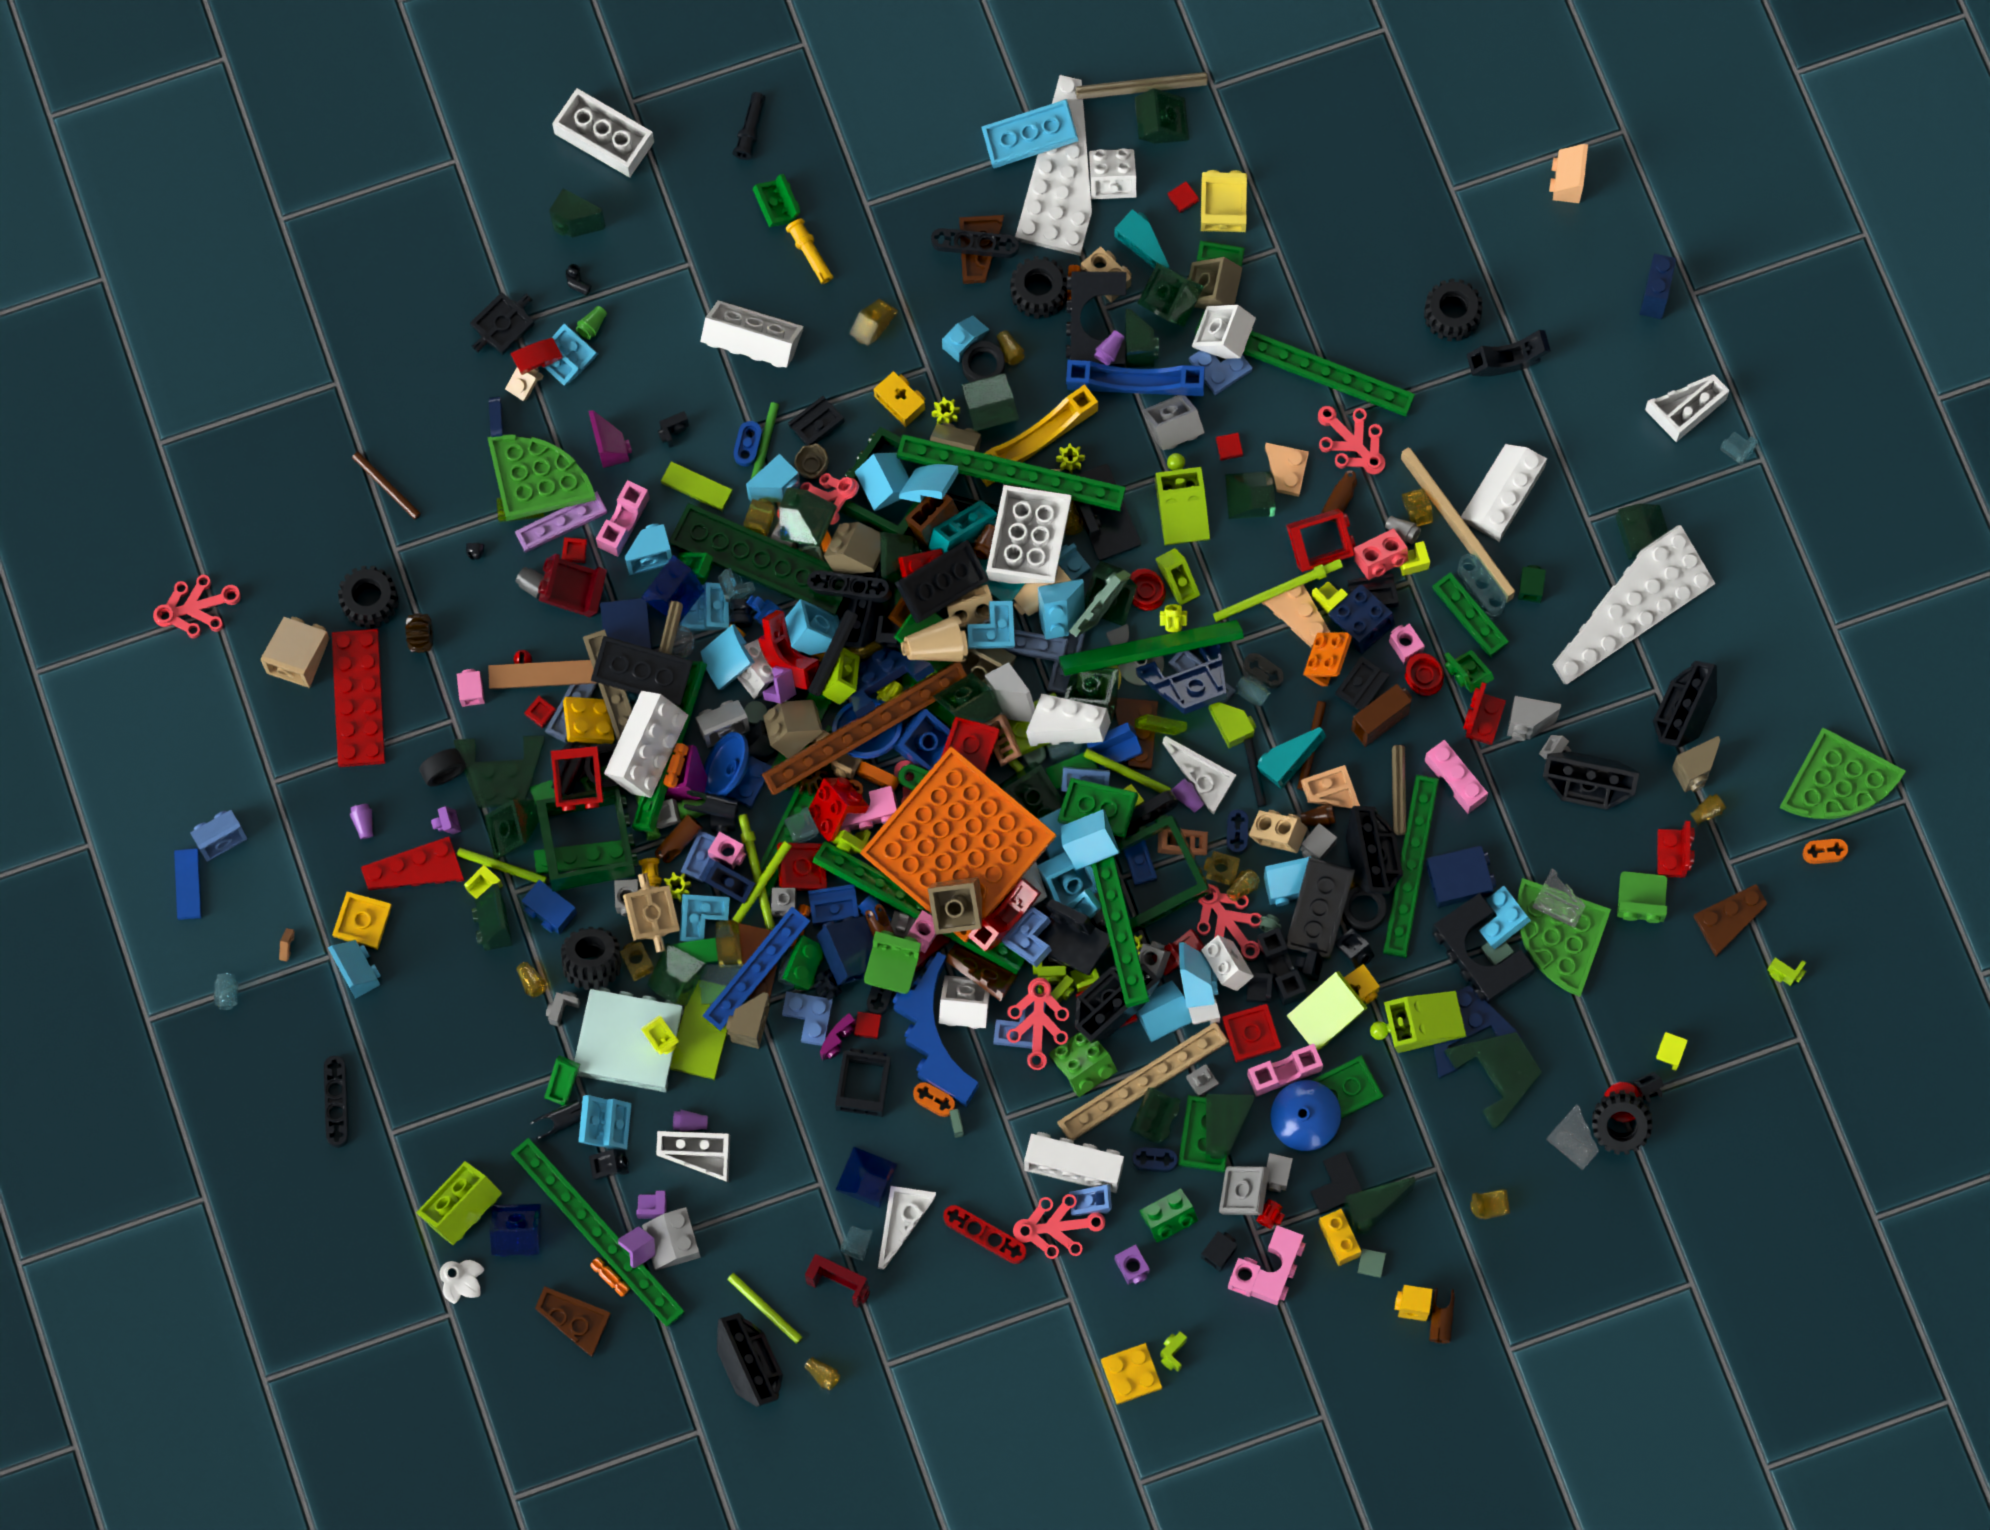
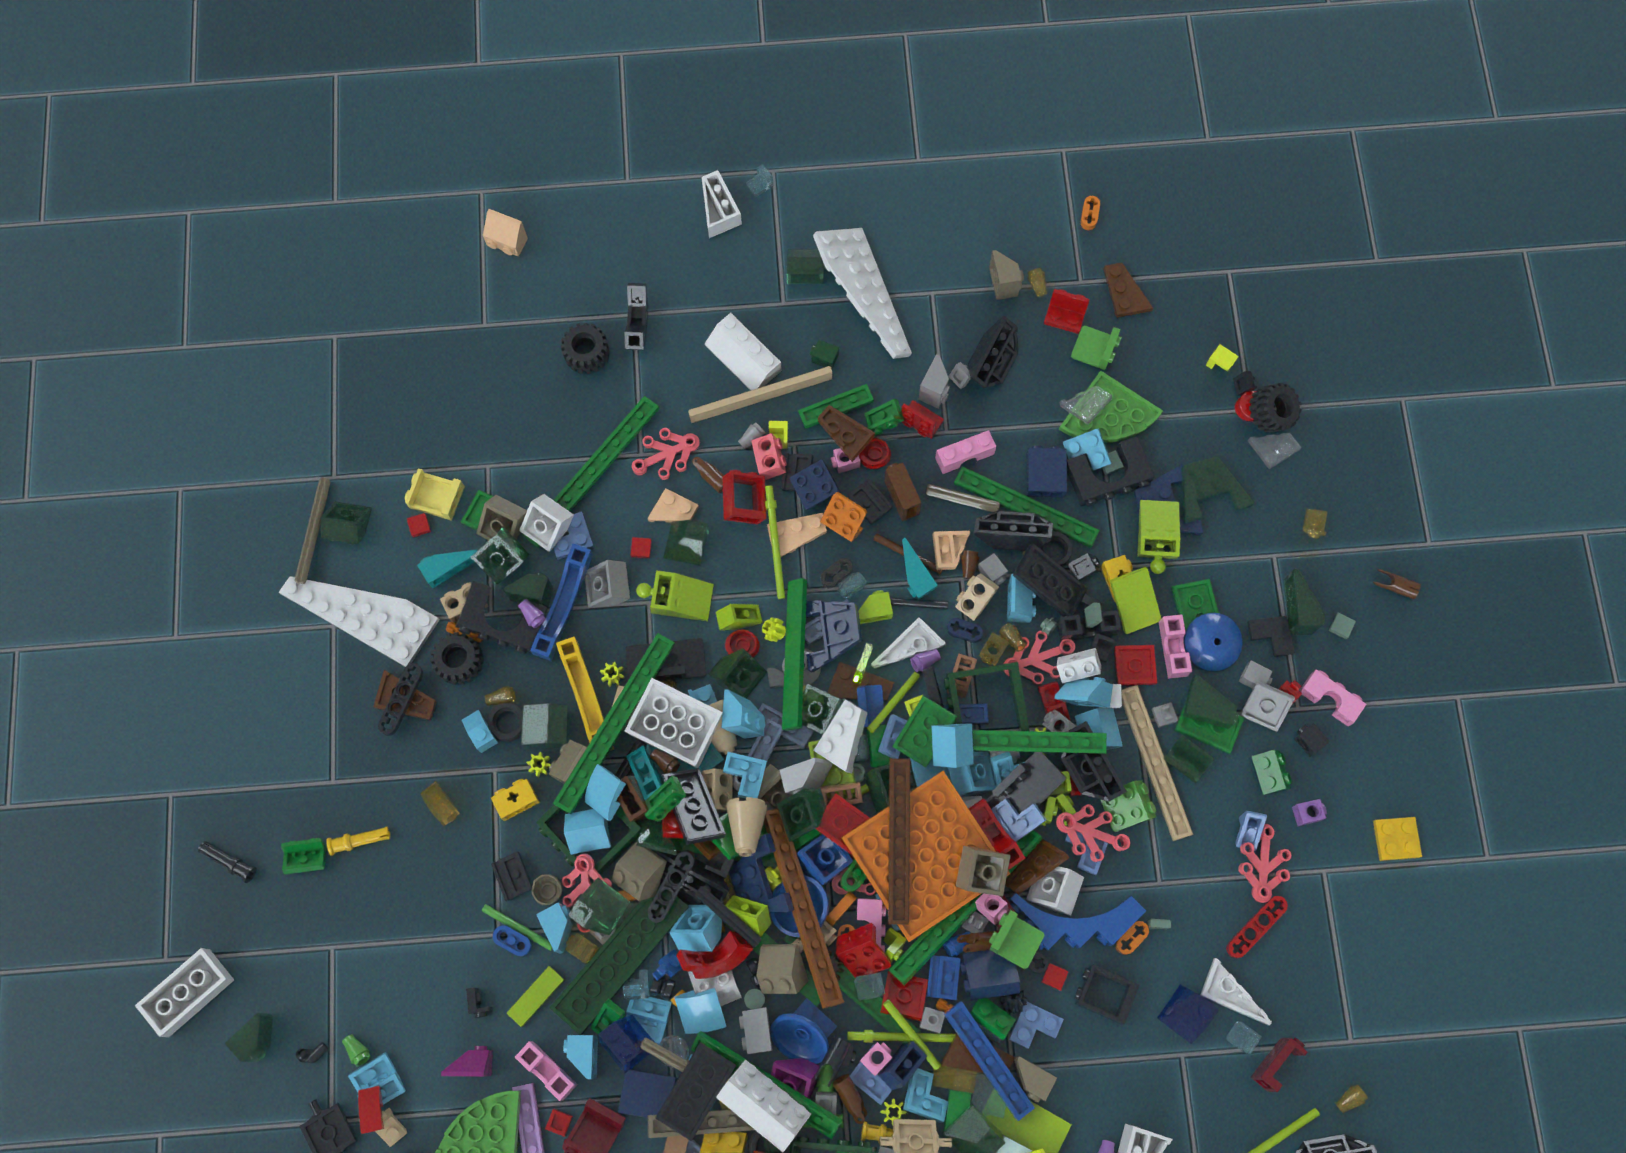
camera: 75 degrees left, 0 degrees up
(675, 765) = (788, 1083): orange axle -> none
(751, 334) = (414, 911): white slope -> none
(759, 742) = (782, 1003): black panel -> none
(783, 686) = (743, 969): medium lavender panel -> none
(832, 1043) = (1067, 1012): magenta slope -> none
(937, 546) = (664, 799): none -> green bracket
(964, 808) = (899, 841): none -> reddish brown tile
(1030, 133) = (321, 629): medium azure tile -> none
(1073, 1162) = (1218, 835): white brick -> none
(1101, 603) = (745, 678): sand green wing -> none
(1112, 174) = (379, 573): white bracket -> none
(1155, 1153) = (1227, 771): dark blue beam -> none
(1173, 1344) = (1385, 800): lime bracket -> none
(1239, 1285) = (1344, 723): bright pink brick -> none
(1292, 965) = (1093, 615): none -> sand green tile
(1328, 596) = (791, 506): neon yellow panel -> none
(1339, 1237) = (1320, 643): yellow brick -> none
(1413, 1302) = (1388, 600): yellow brick -> none
(1418, 507) = (736, 419): clear yellow bracket -> none
(1435, 631) = (846, 432): none -> reddish brown wing
(1480, 574) = (821, 384): clear light blue beam -> none
(1657, 286) = (617, 196): dark blue brick -> none
(1687, 705) = (953, 273): black wedge -> none
(1782, 972) = (1179, 266): lime bracket -> none
(1839, 780) = (1038, 187): bright green plate -> none

